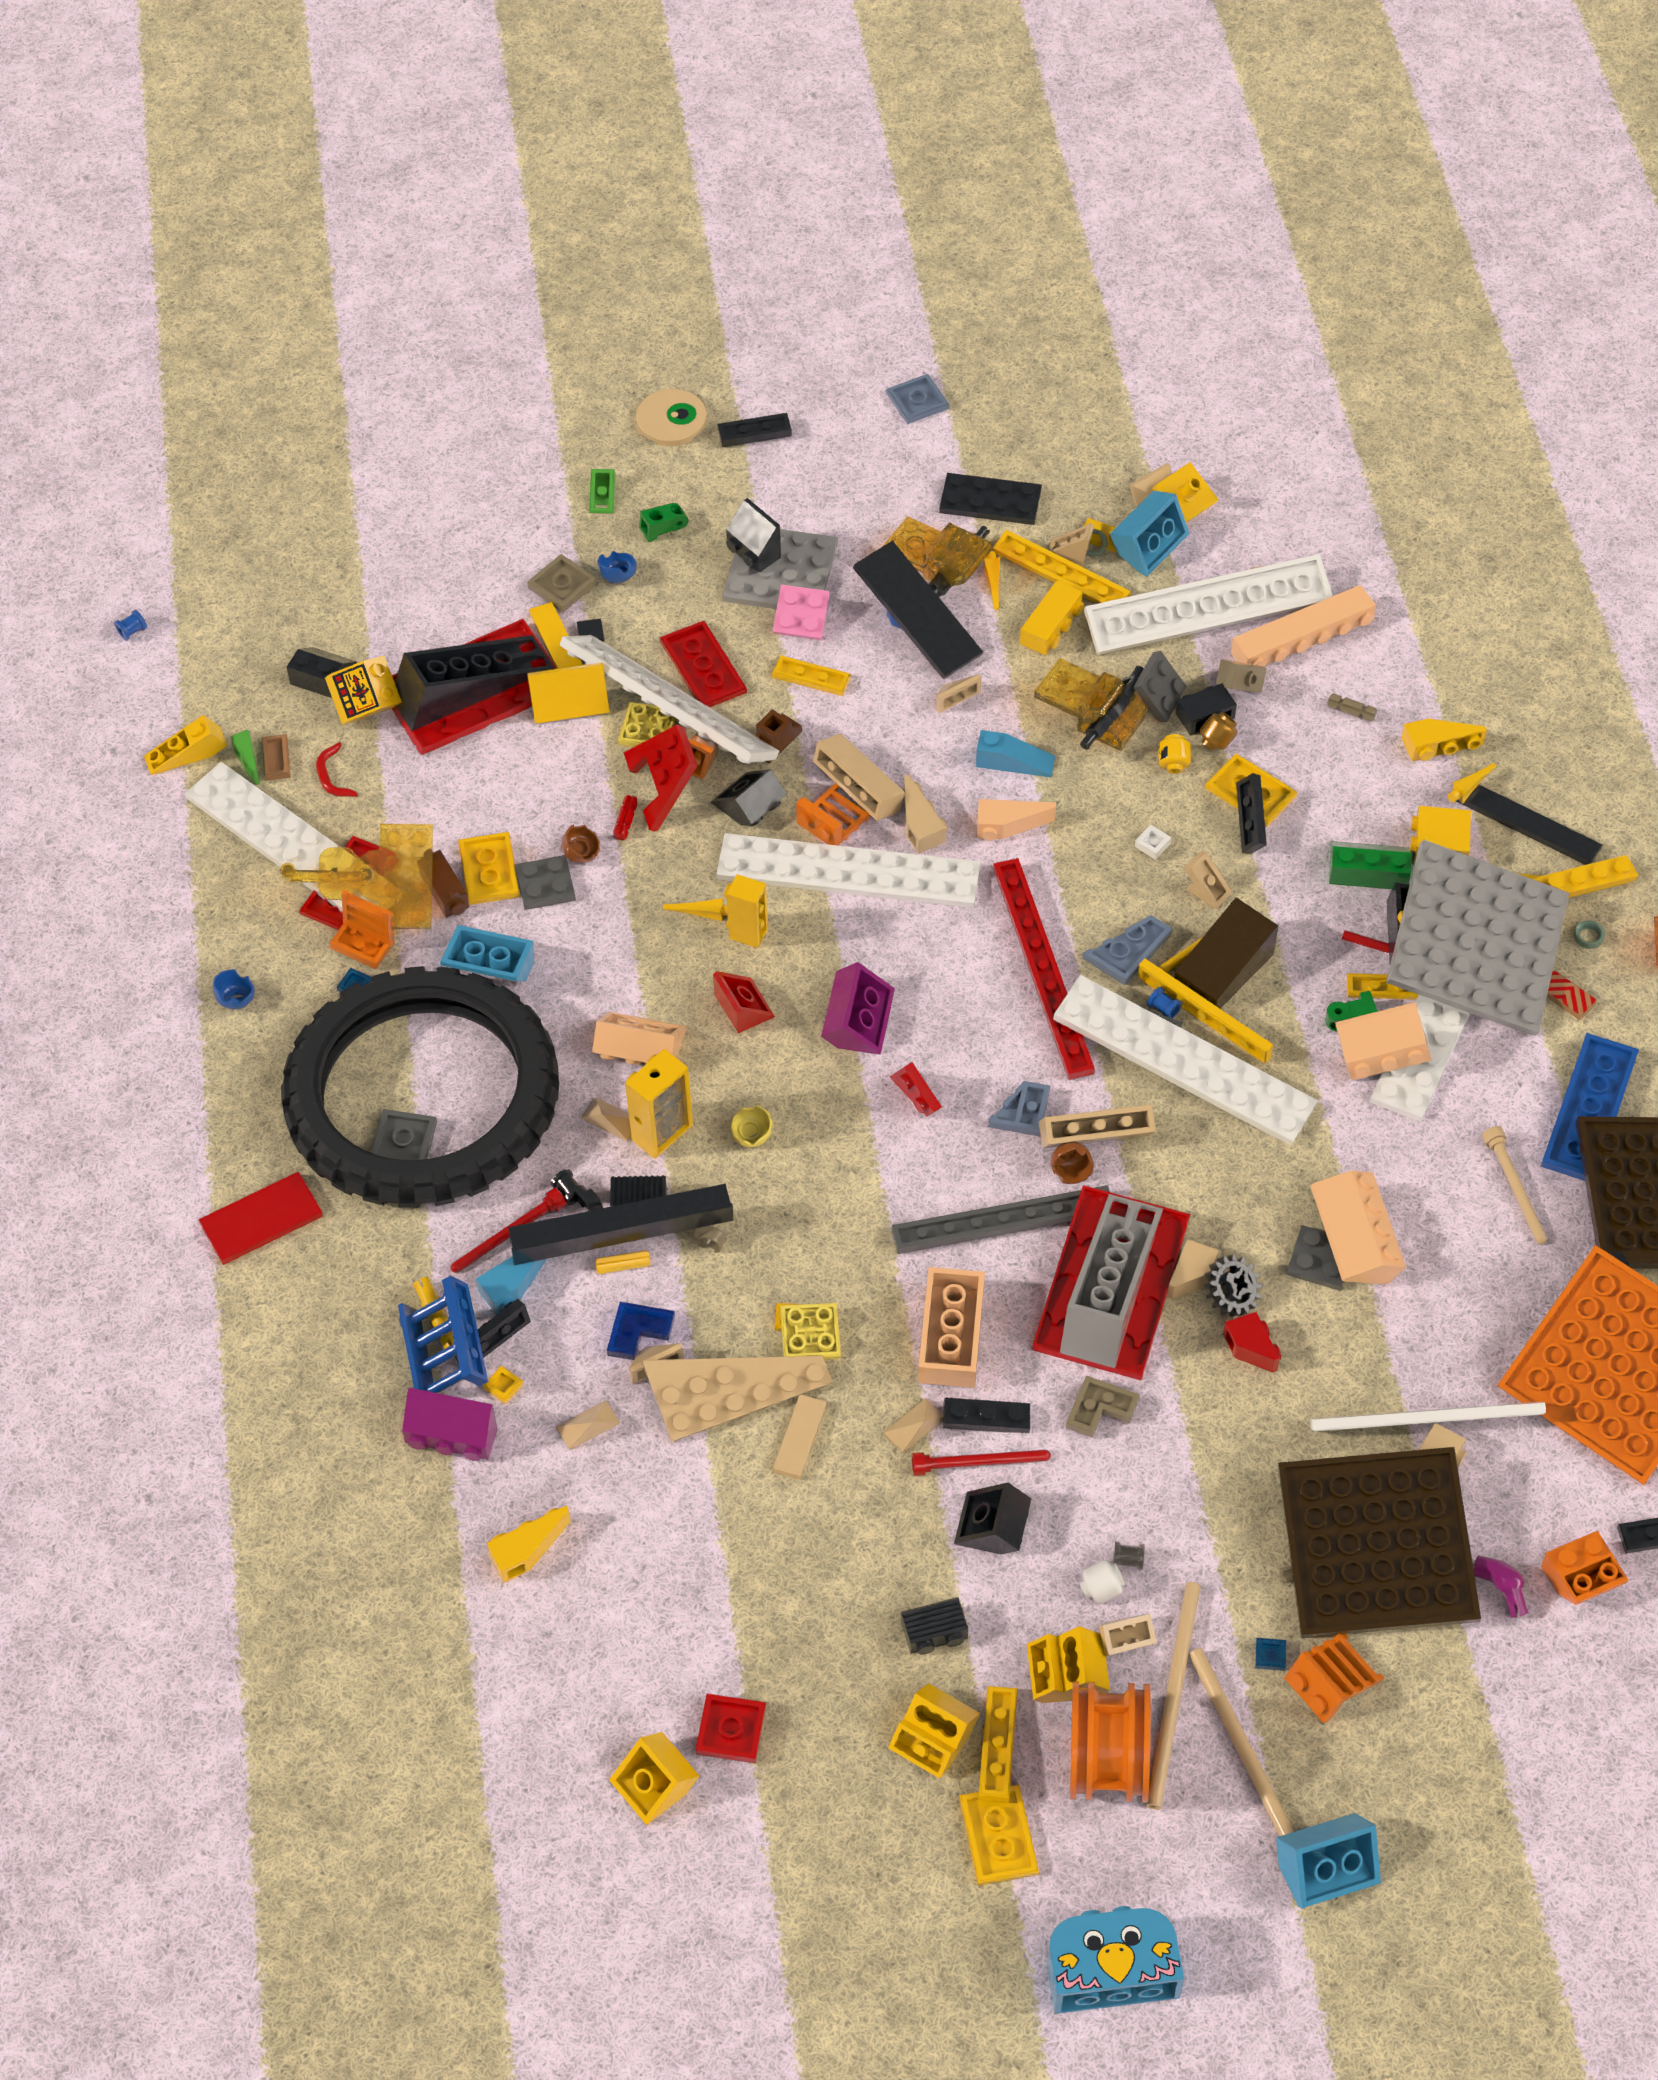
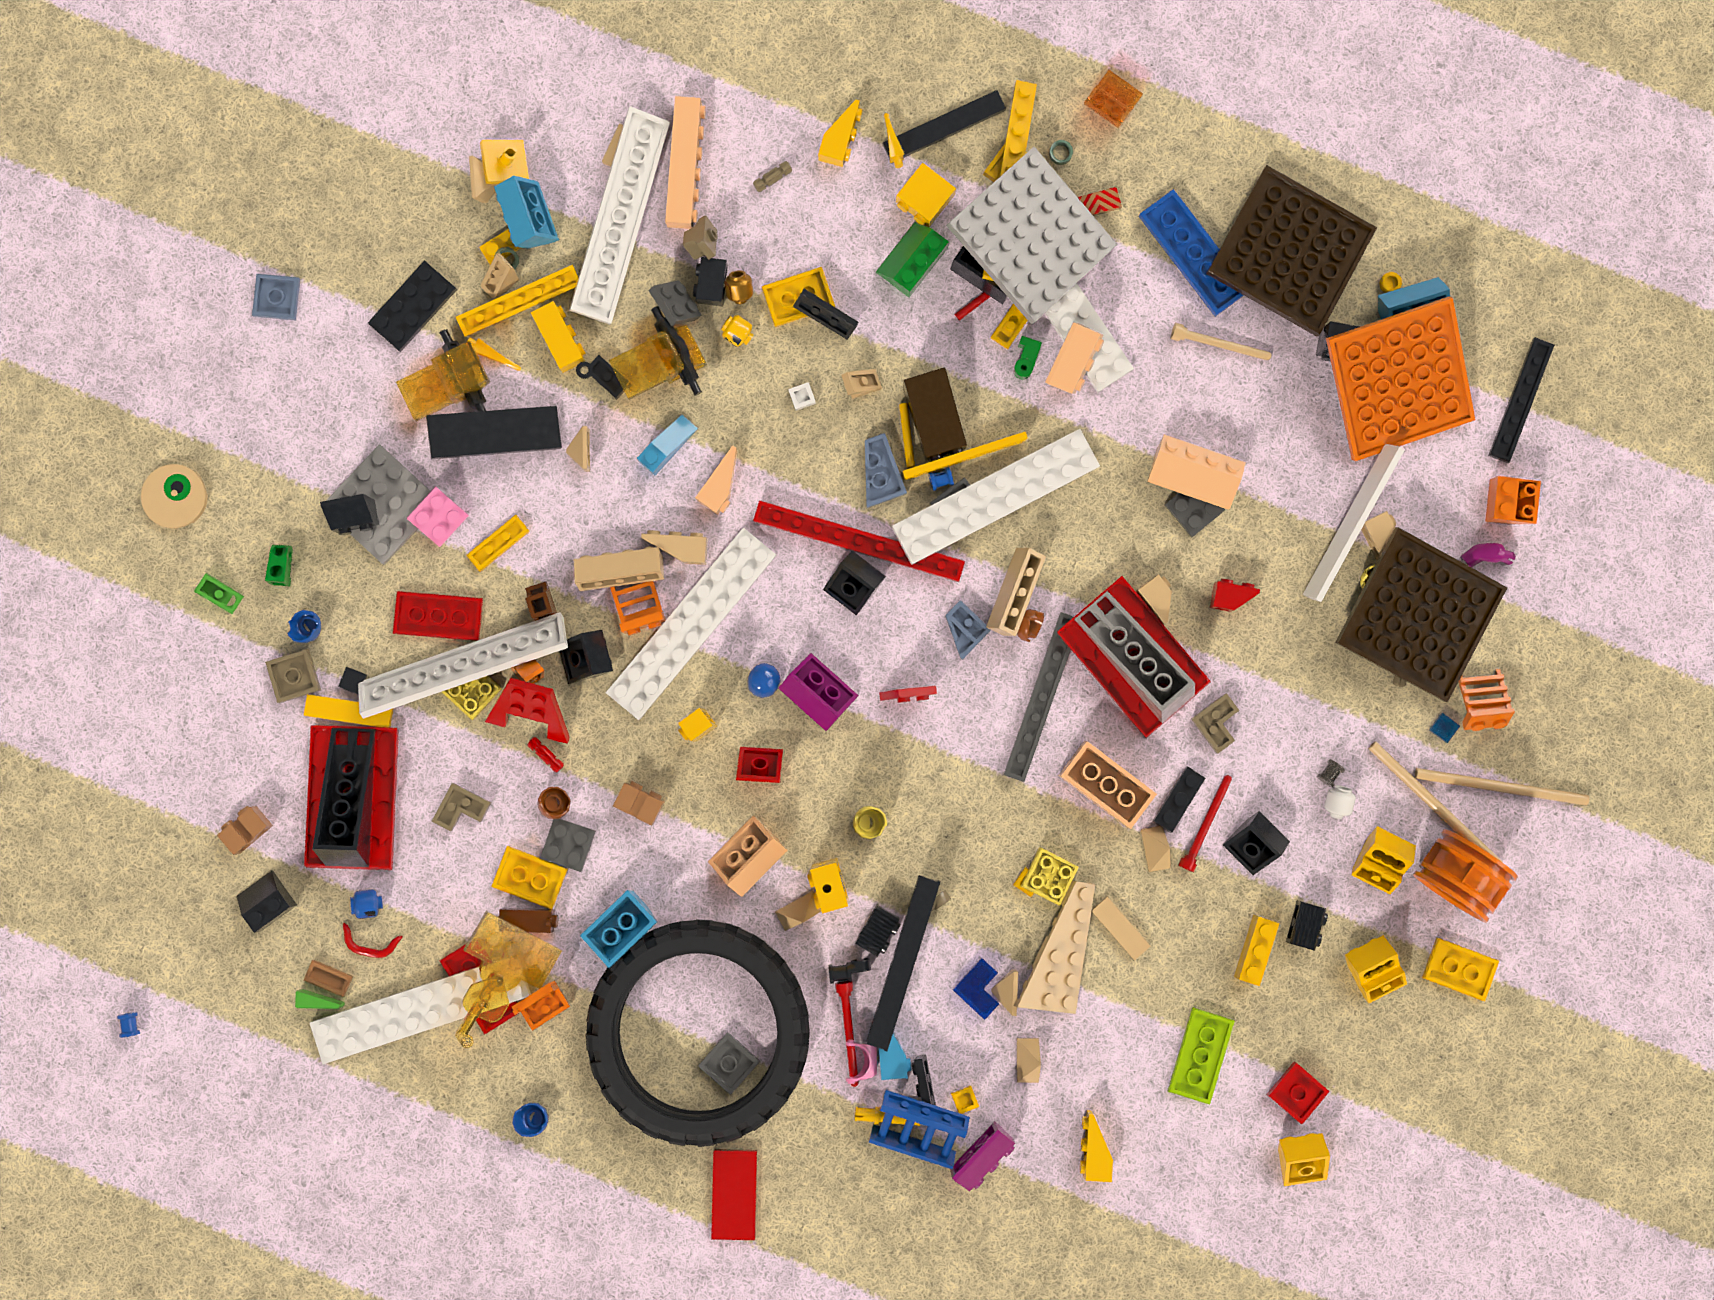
camera: 60 degrees left, 30 degrees up
(191, 744) = (279, 1041): yellow slope -> none
(352, 977) = (574, 1027): tile -> none
(363, 690) = (313, 886): yellow piece -> none
(372, 746) = (366, 904): none -> blue head
(383, 620) = (245, 830): none -> medium nougat brick
(480, 1268) = (870, 1062): none -> bright pink helmet
(524, 768) = (459, 801): none -> dark tan plate
(568, 693) = (409, 735): yellow tile -> none
(622, 1262) = (919, 968): yellow axle -> none
(629, 916) = (639, 803): none -> medium nougat brick
(707, 1601) = (1201, 1055): none -> lime tile
(710, 909) = (665, 741): yellow piece -> none
(754, 429) = (230, 441): black plate -> none
(833, 957) = (763, 680): none -> blue hair
(869, 1585) = (1256, 950): none -> yellow brick
(997, 982) = (854, 582): none -> black slope
(998, 1744) = (1406, 934): yellow tile -> none
(1041, 666) = (603, 374): none -> black hinge
(1113, 1960) = (1588, 957): dark azure brick -> none
(1127, 1634) = (1381, 810): tan slope -> none
(1232, 1285) = (1187, 581): gear -> none
(1329, 1859) = (1599, 785): dark azure slope -> none

